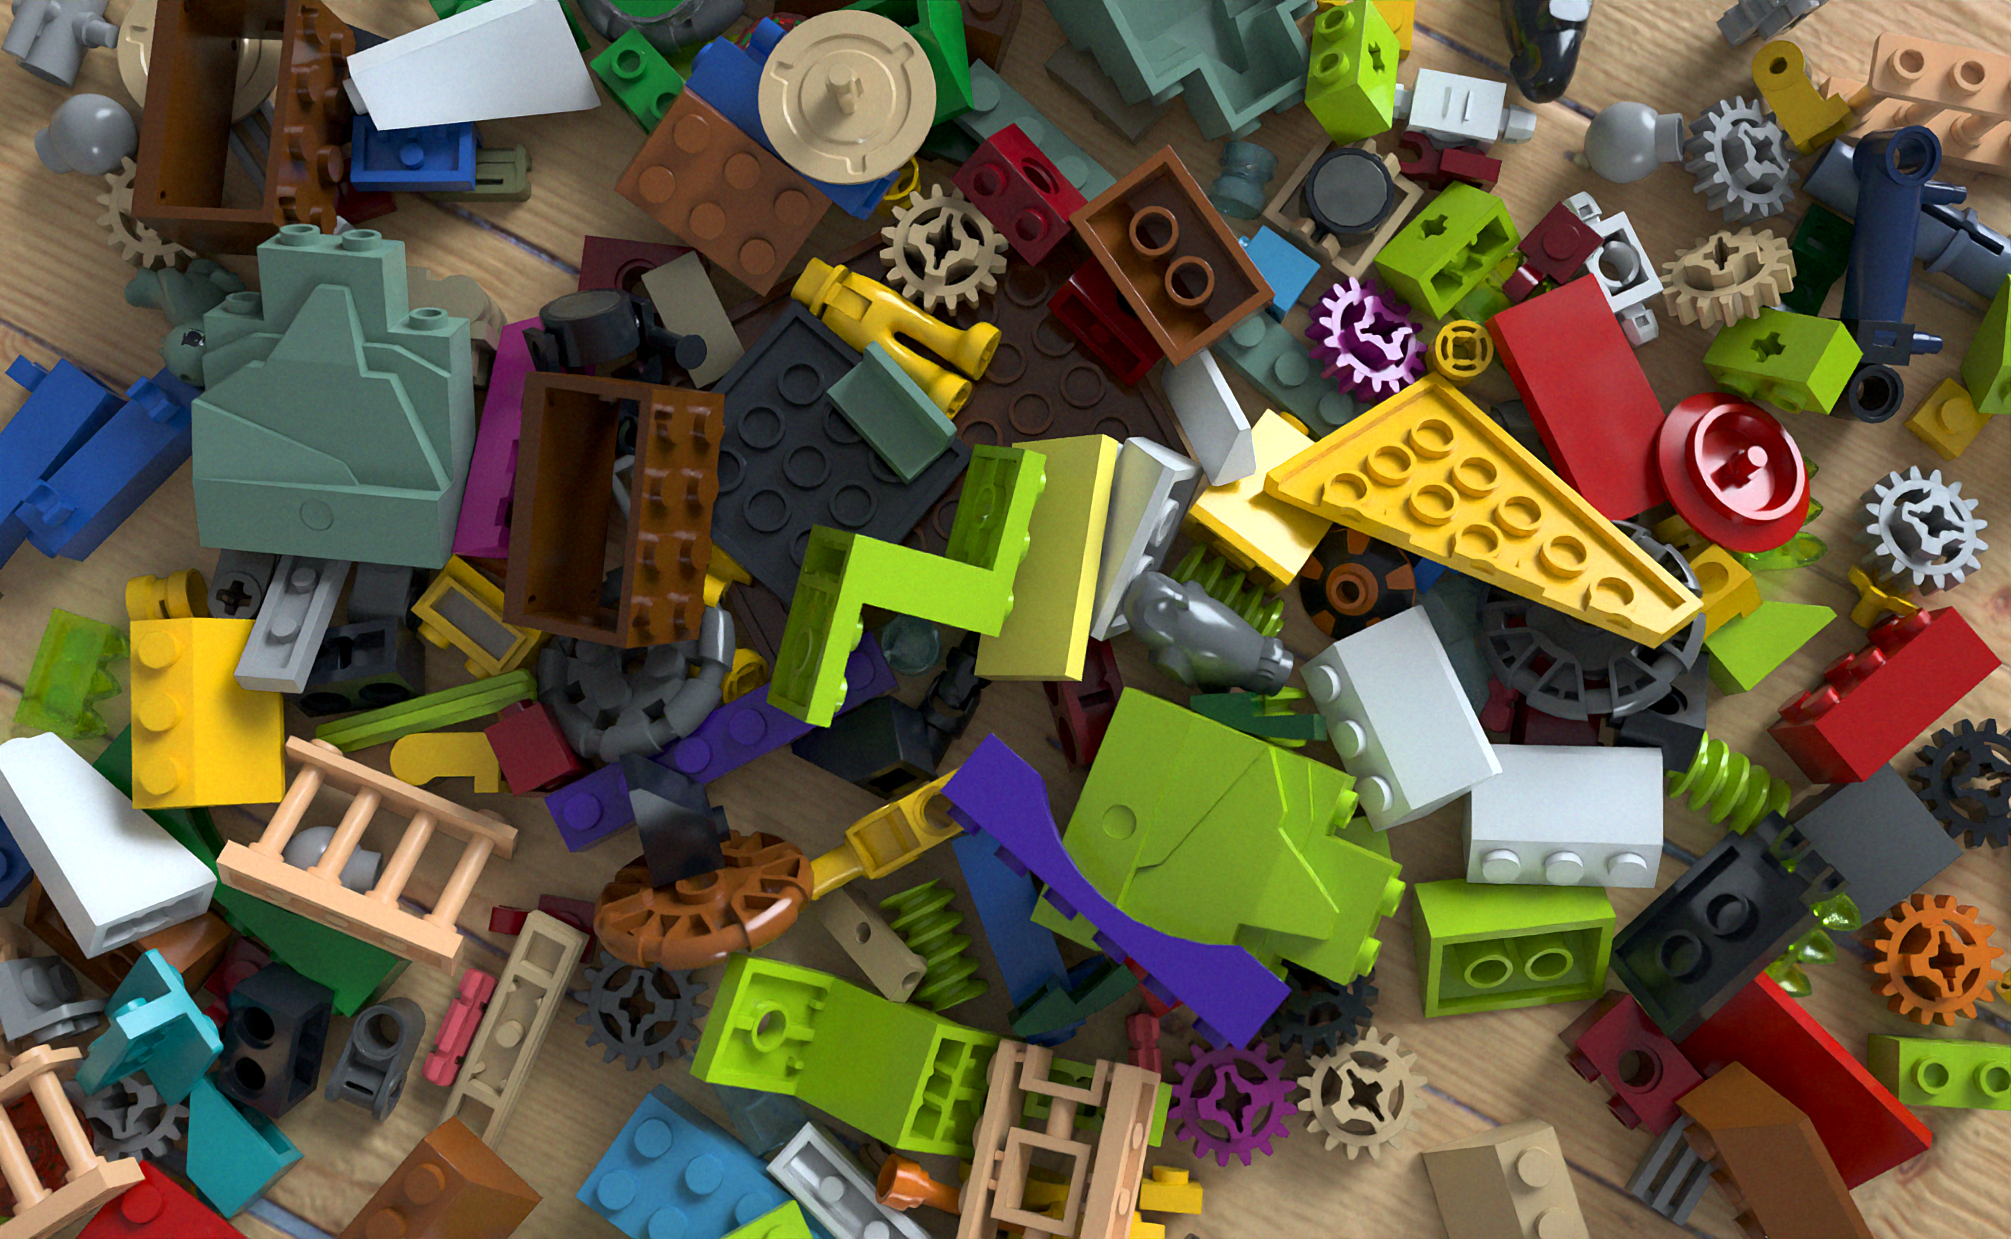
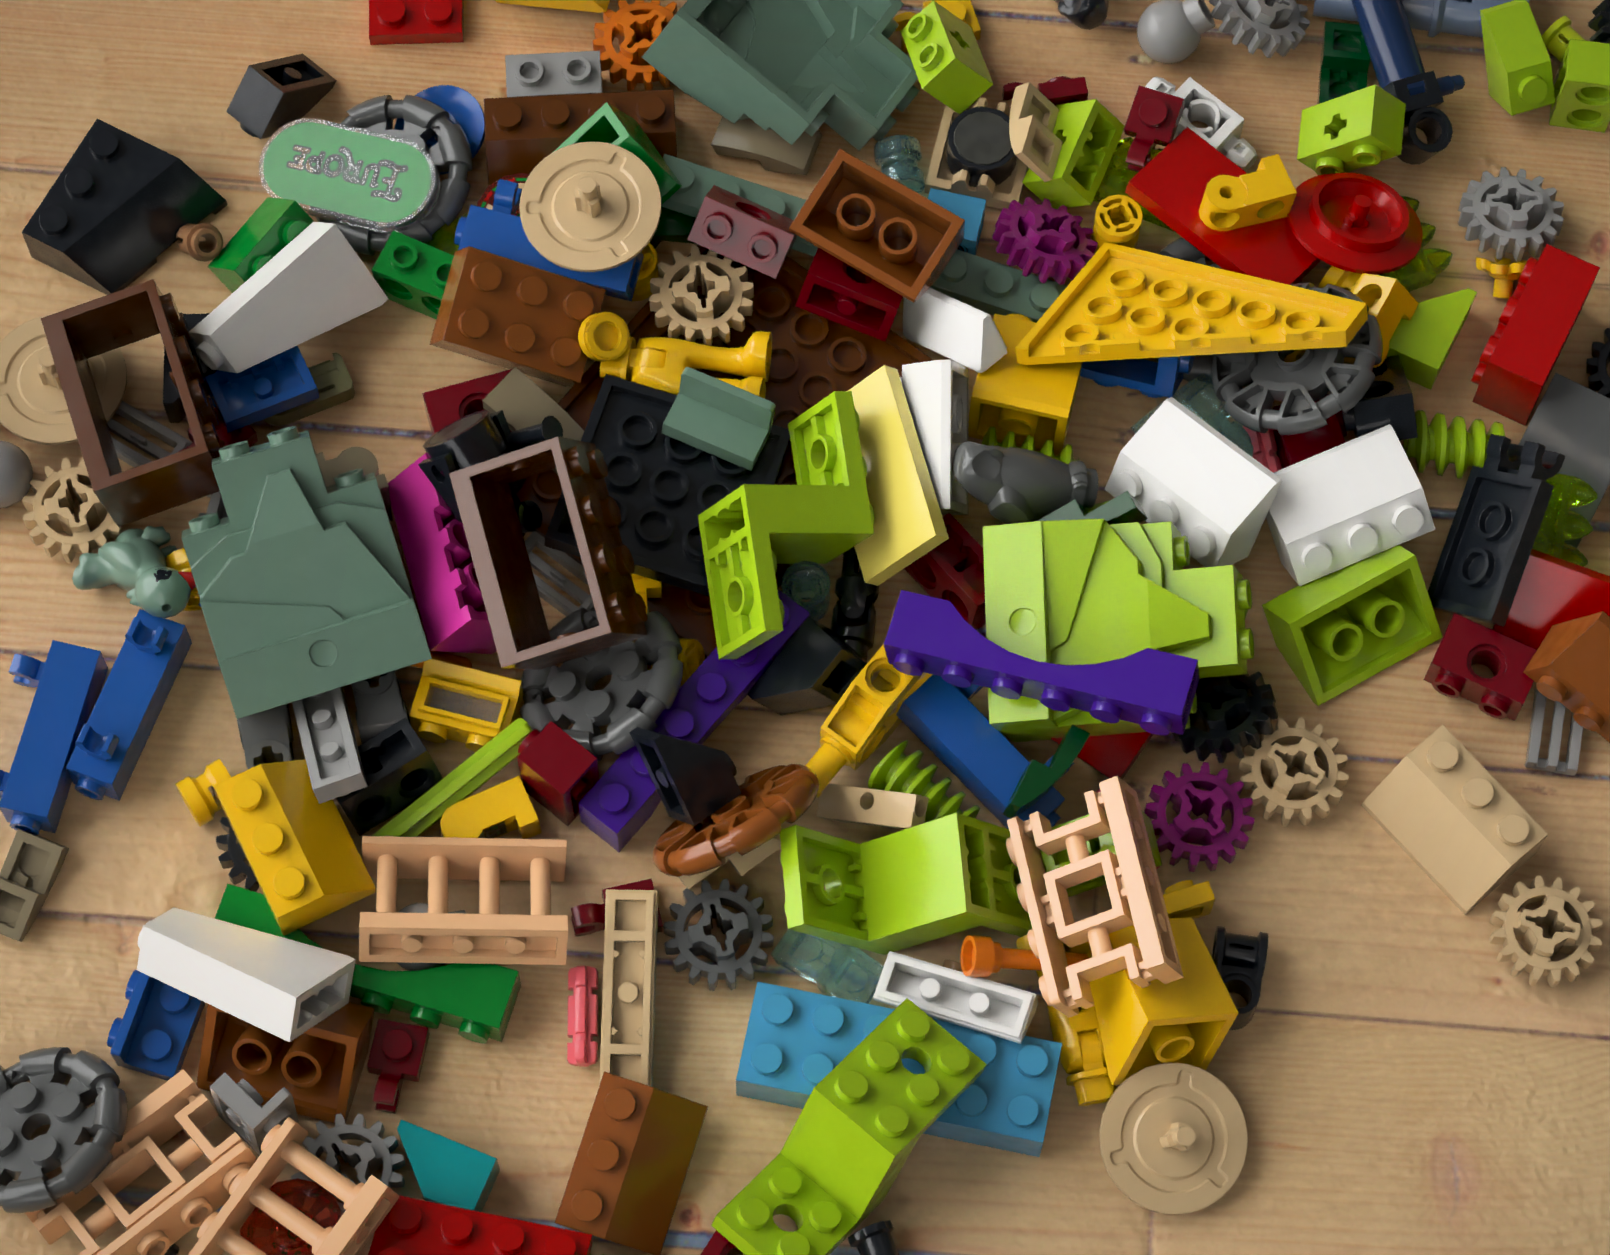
camera: 25 degrees left, 15 degrees down
(72, 675) = (156, 875): clear neon green plate -> none
(152, 1030) = (359, 1087): teal bracket -> none
(274, 1039) = (460, 1070): black brick -> none
(372, 1067) = (530, 1069): dark grey piece -> none
(806, 257) = (603, 336): none -> yellow tile
(1376, 567) = (1110, 388): dish -> none
(1407, 206) = (1032, 130): none -> tan slope
(1461, 111) = (1039, 55): white piece -> none
(1625, 398) = (1248, 199): none -> yellow leg
(1727, 277) = (1285, 93): tan gear -> none
(1947, 419) = (1496, 132): yellow plate -> none

